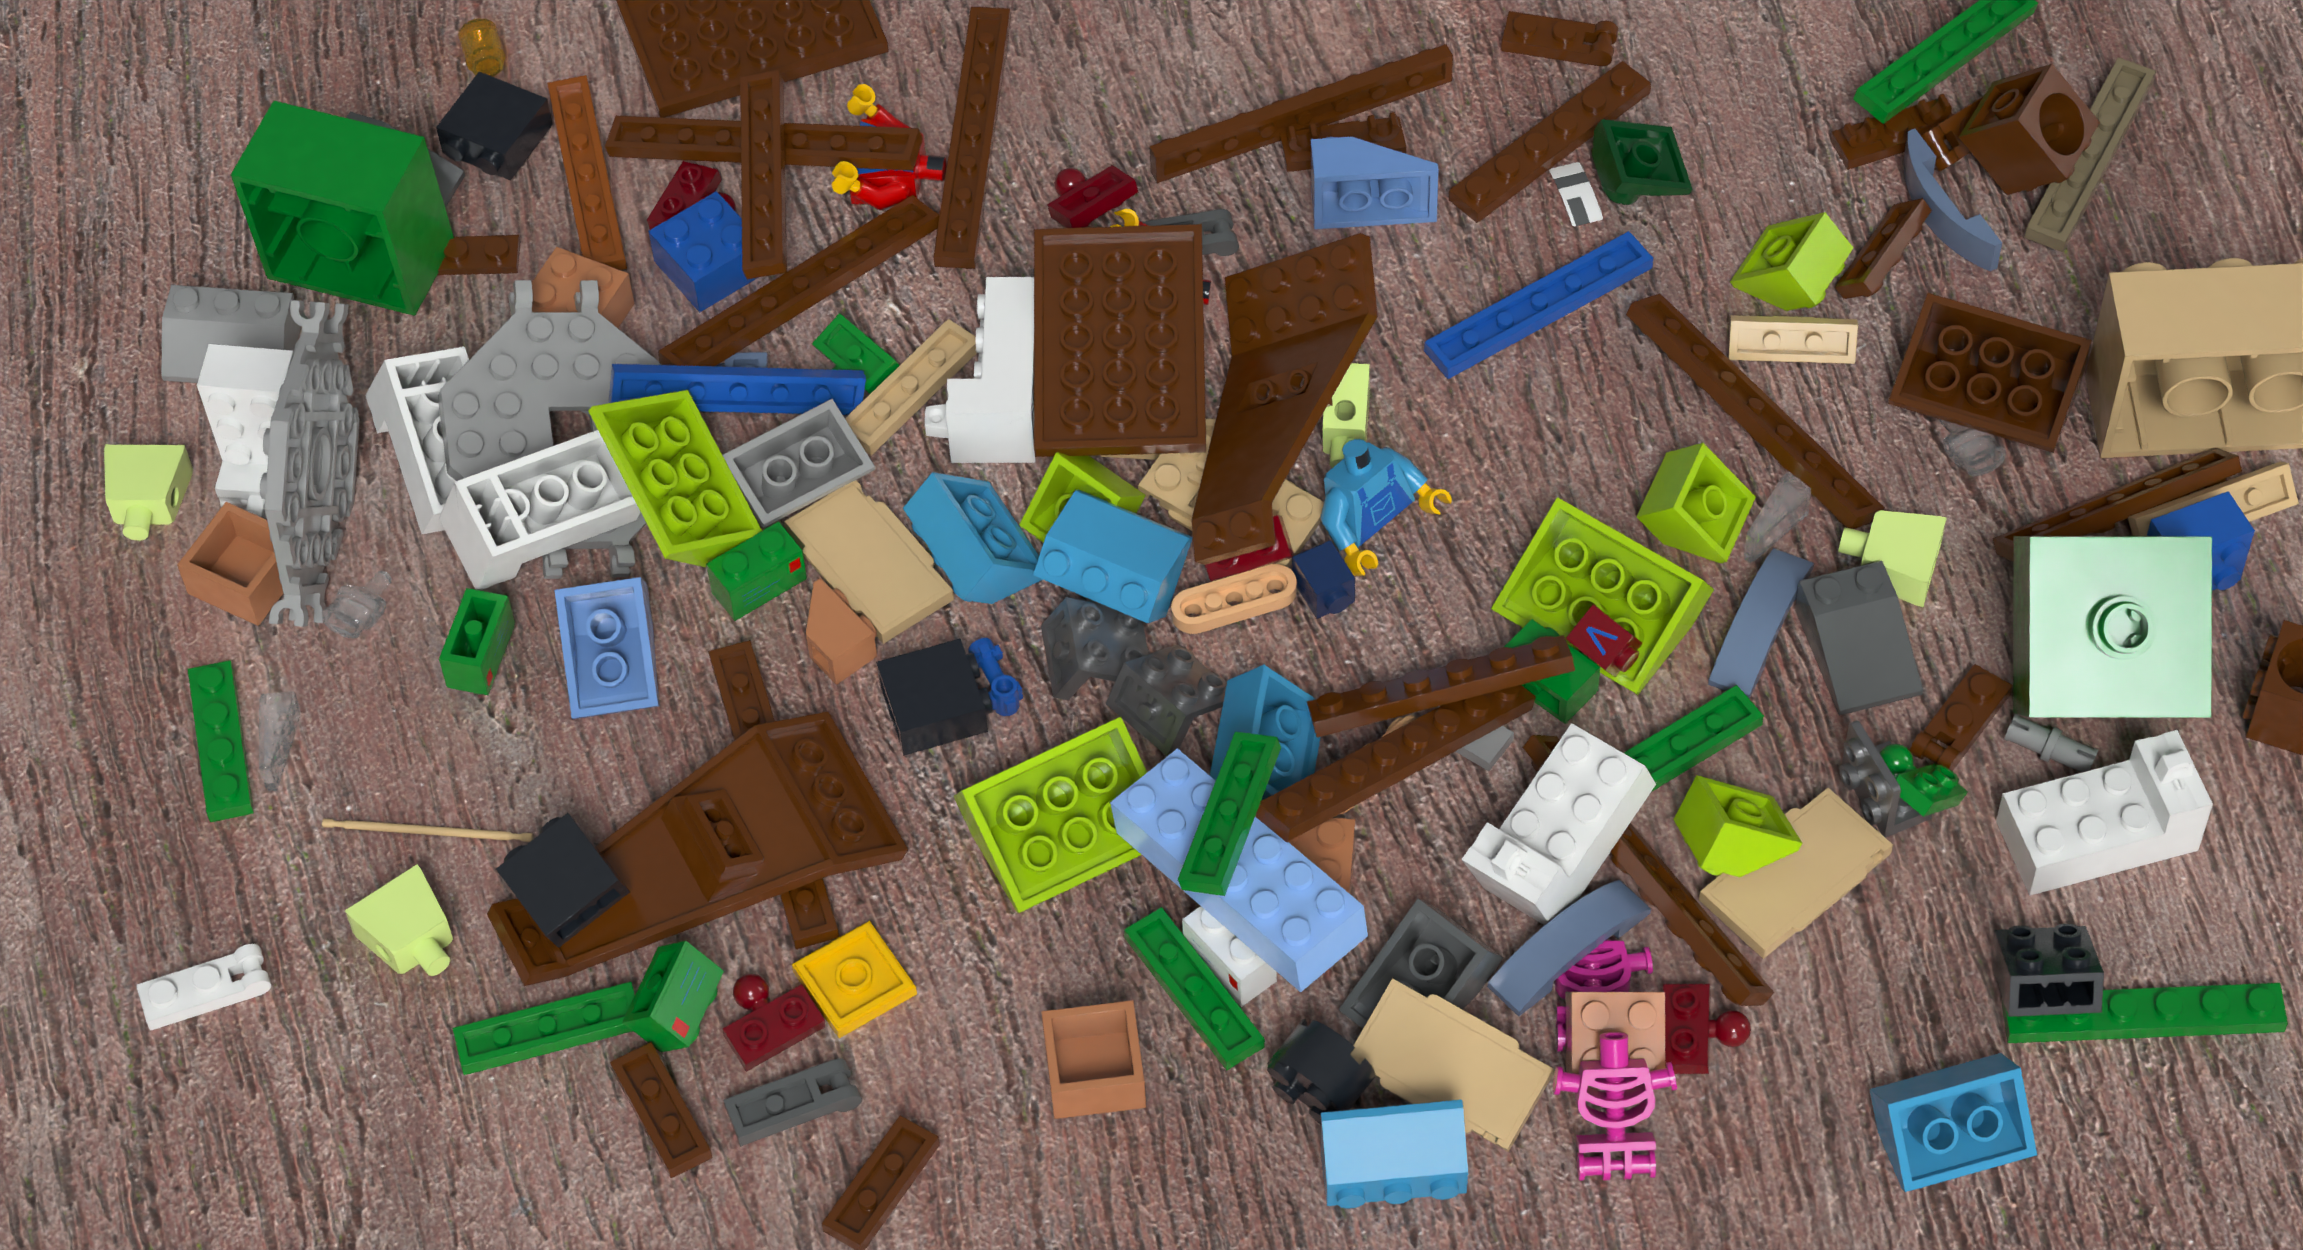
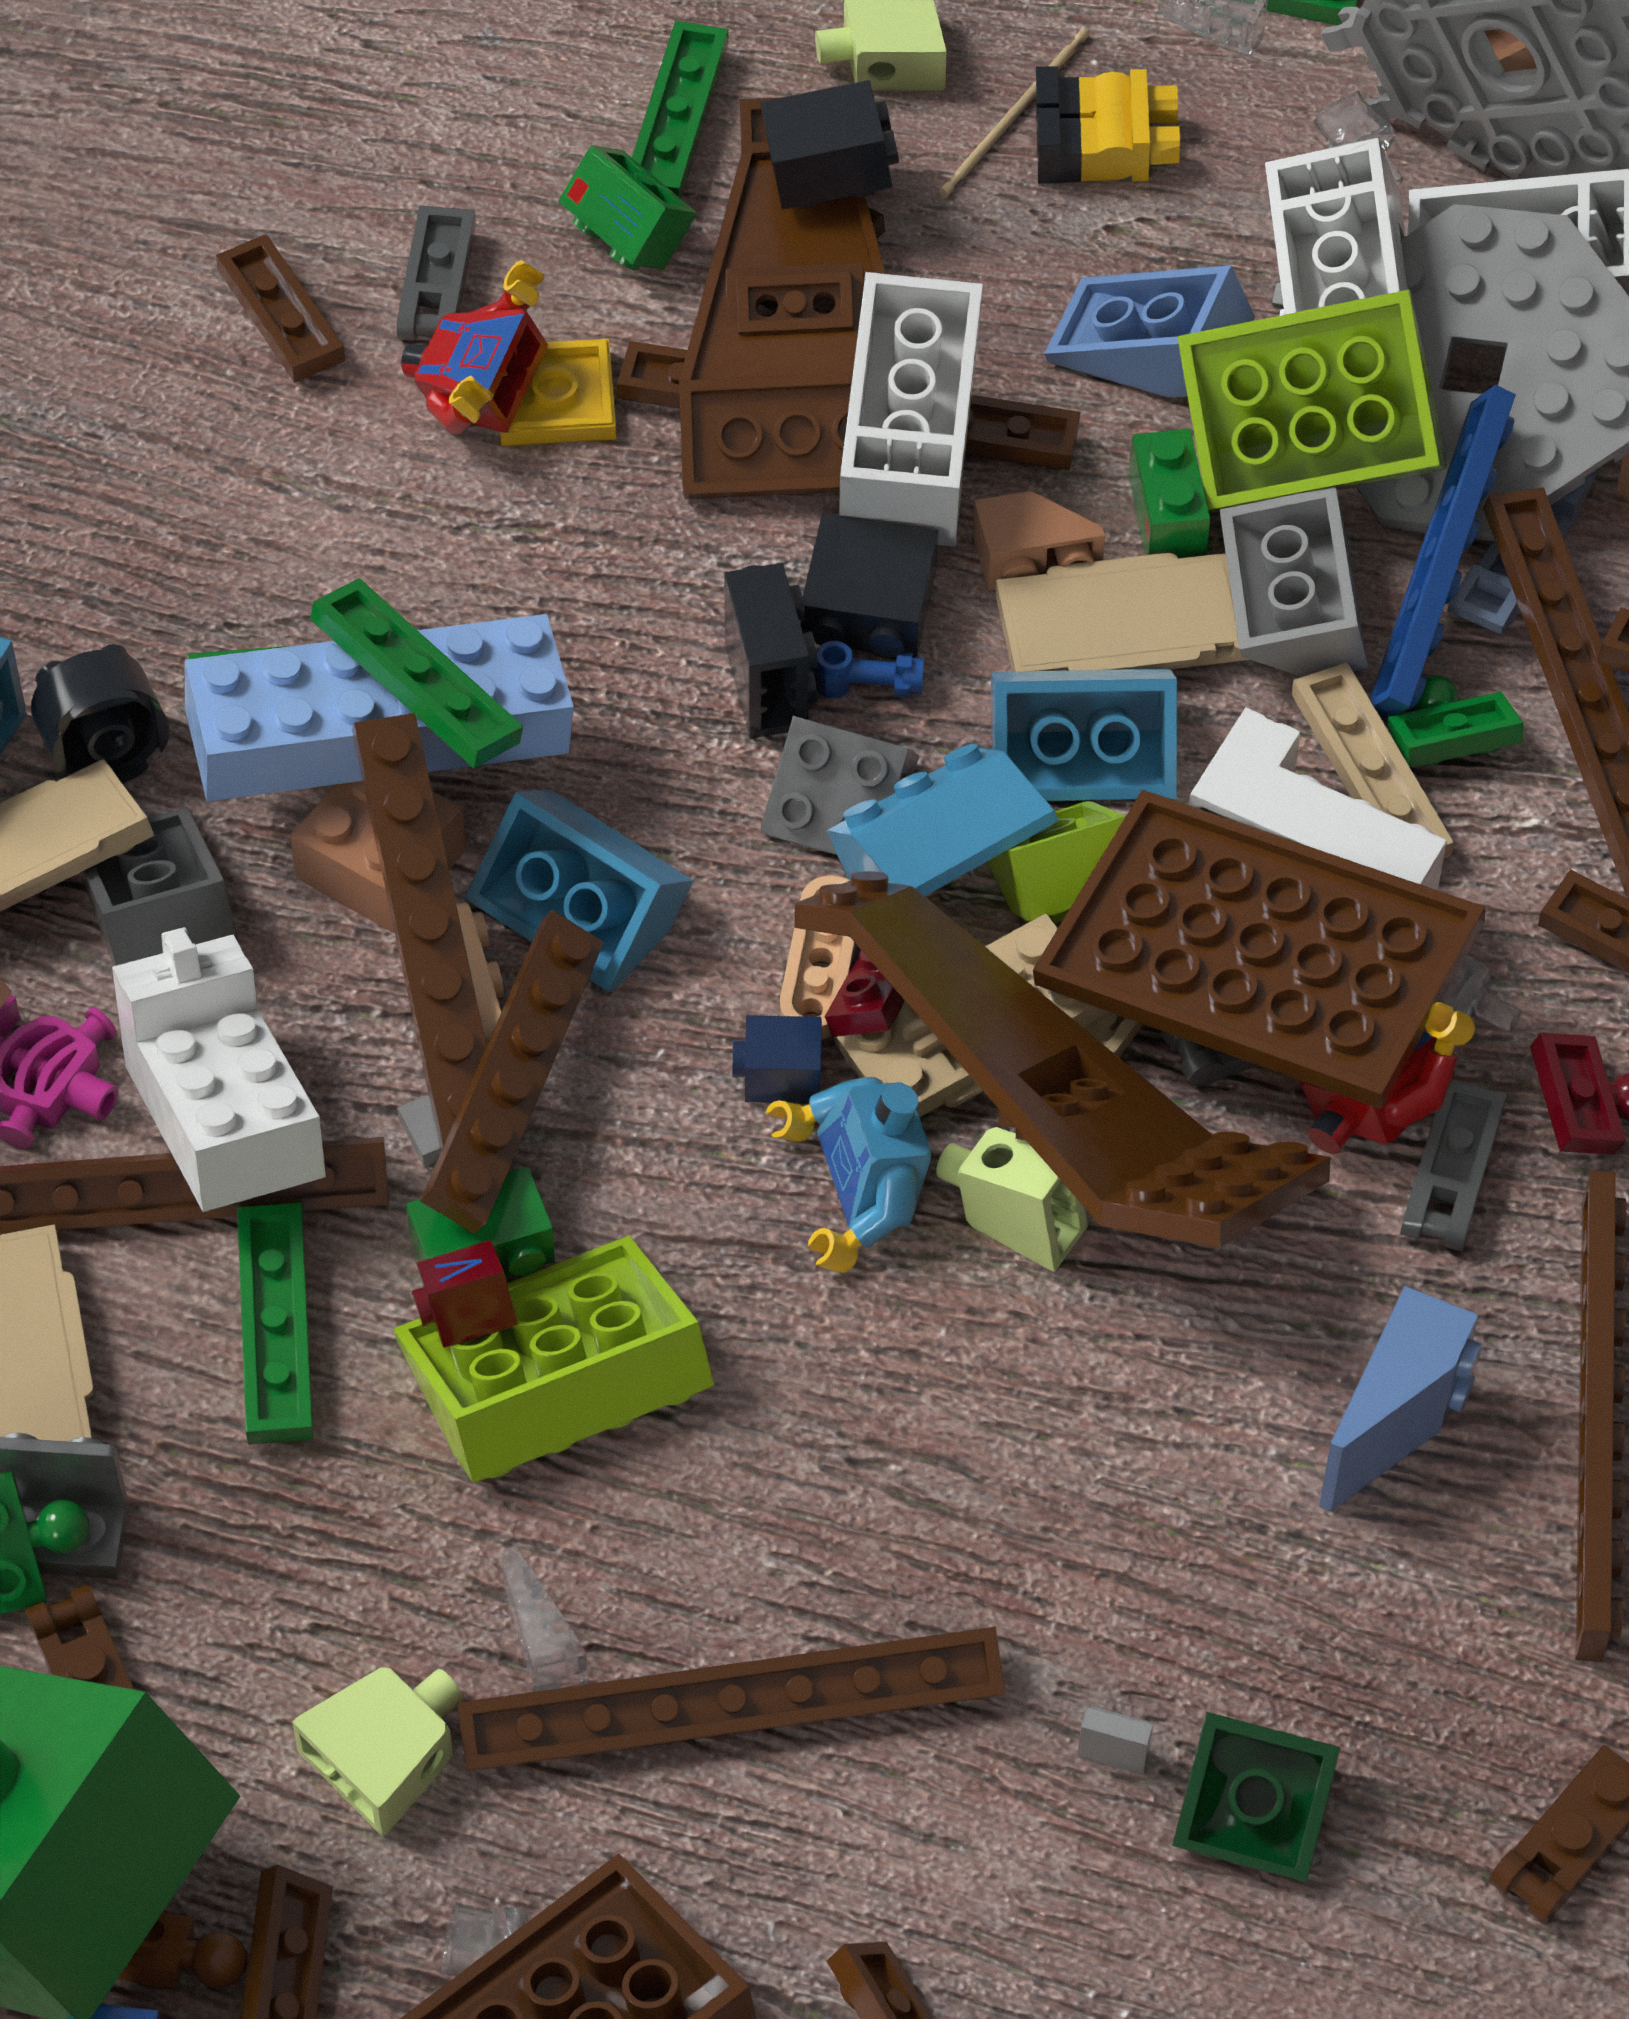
camera: 115 degrees right, 0 degrees up
(422, 743) = (1102, 127): none -> yellow hips
(477, 641) = (1221, 205): green brick -> none
(661, 1110) = (501, 164): reddish brown plate -> none
(772, 1024) = (595, 290): dark red plate -> none
(801, 692) = (910, 402): none -> white hinge
(878, 1009) = (481, 358): none -> torso
(1028, 714) = (768, 649): none -> black brick
(1052, 815) = (637, 646): lime slope -> none
(1094, 1059) = (274, 526): nougat piece -> none
(1165, 694) = (726, 835): flat silver bracket -> none
(1297, 143) = (1522, 1450): reddish brown plate -> none
(1538, 305) = (1080, 1536): blue plate -> none
(1548, 142) = (1381, 1723): reddish brown plate -> none
(1564, 942) = (89, 1056): sand blue slope -> none
(1576, 194) = (1270, 1705): white sticker -> none
(1652, 233) = (1115, 1739): none -> light grey tile
(1696, 504) = (619, 1539): lime slope -> none
(1734, 828) = (95, 1293): lime slope -> none
(1759, 622) = (406, 1532): sand blue slope -> none
(1792, 339) = (823, 1821): tan plate -> none
(1794, 262) = (952, 1896): lime slope -> none
(1858, 637) = (287, 1616): dark grey slope -> none

